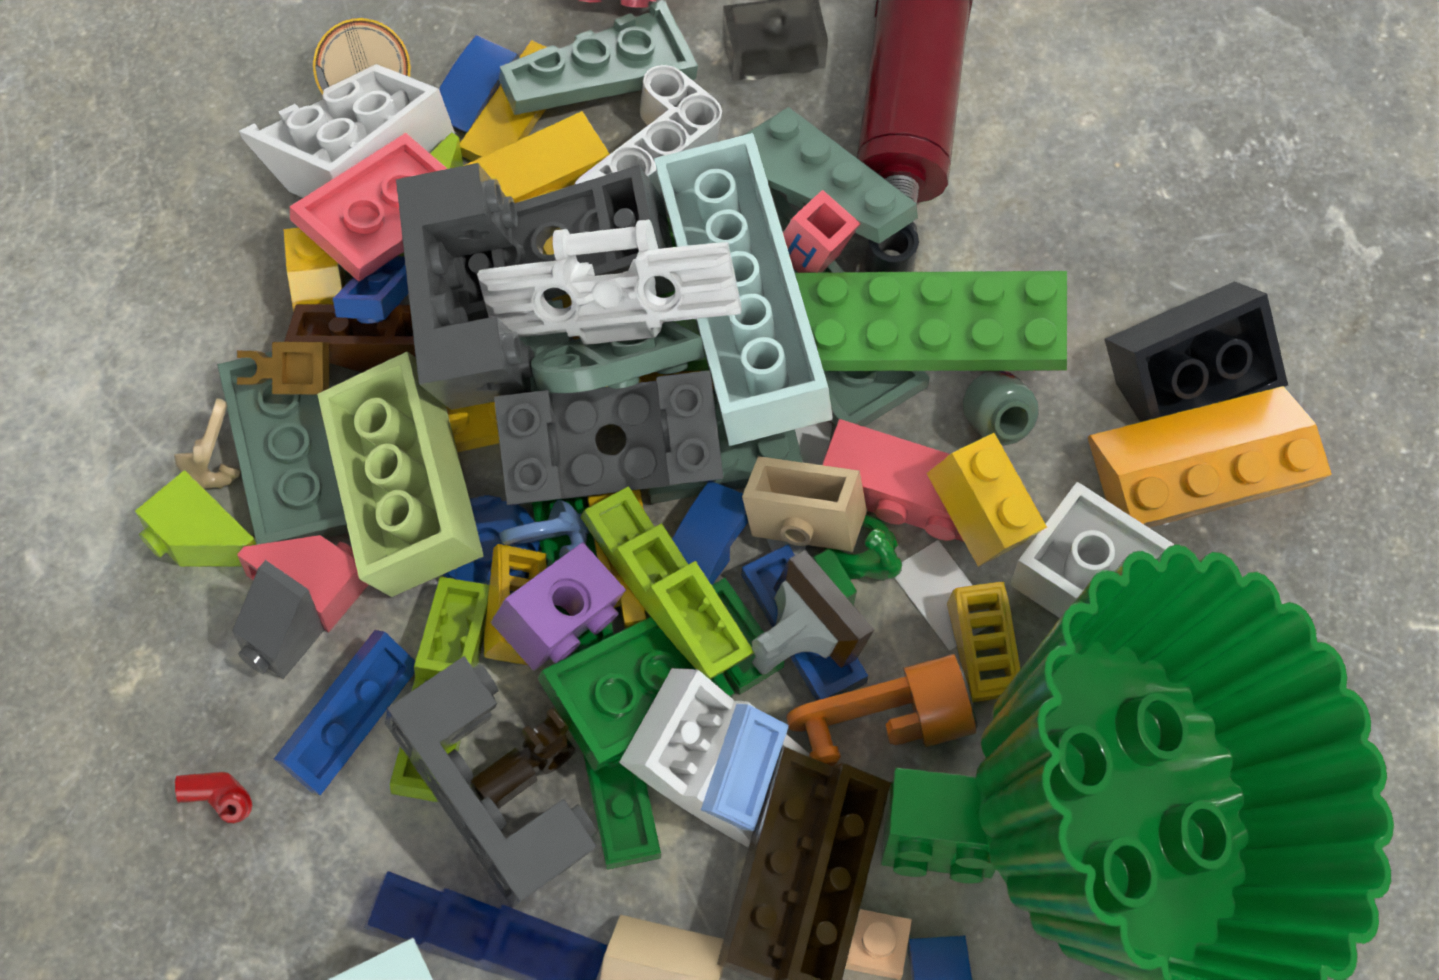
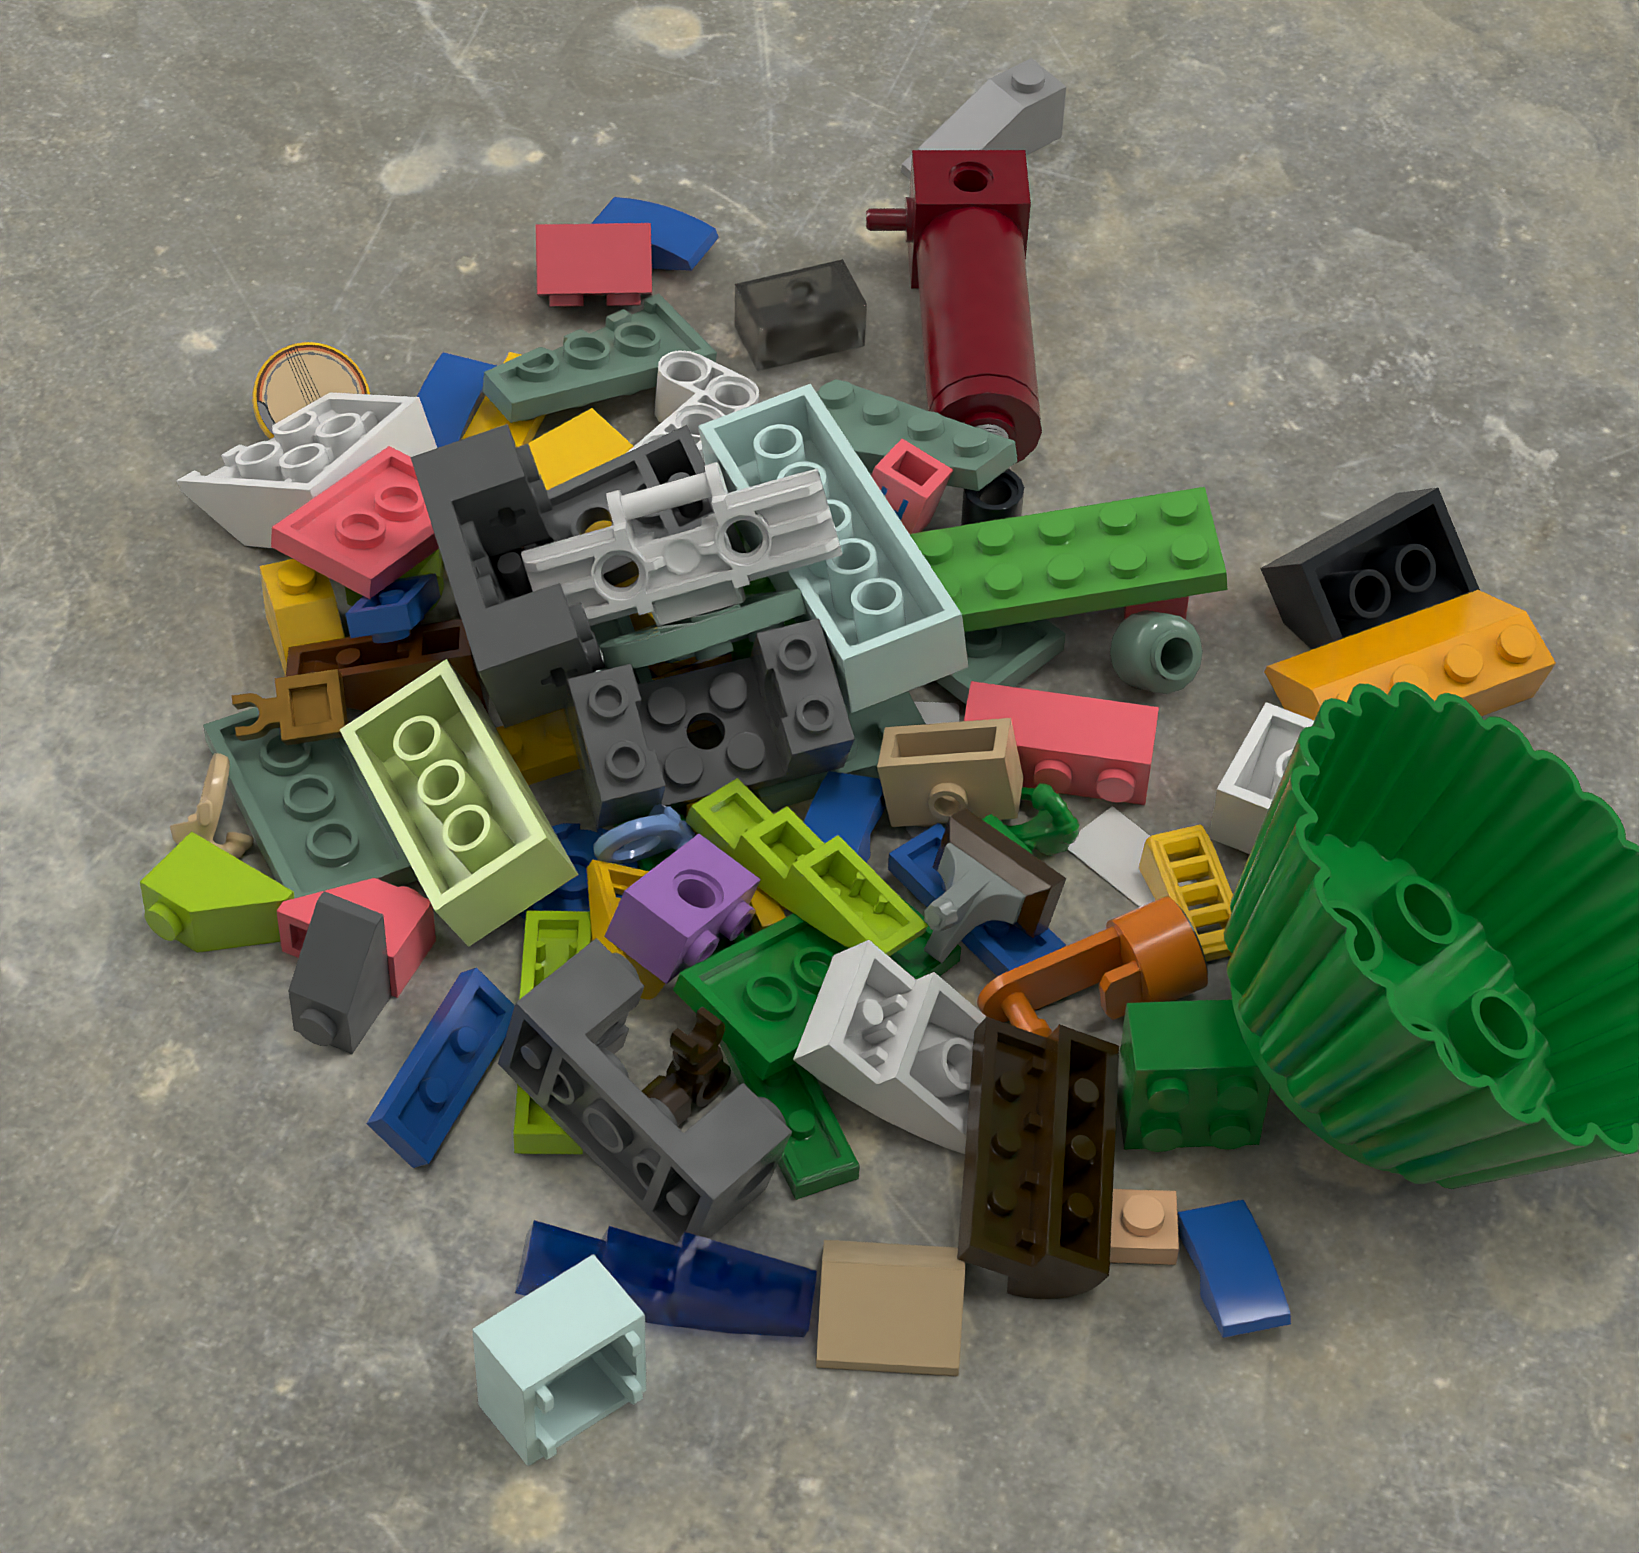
camera: 10 degrees left, 15 degrees down
(219, 790) = (301, 1176): red arm -> none
(744, 767) = (945, 1043): light blue tile -> none
(986, 499) = (1165, 730): yellow brick -> none

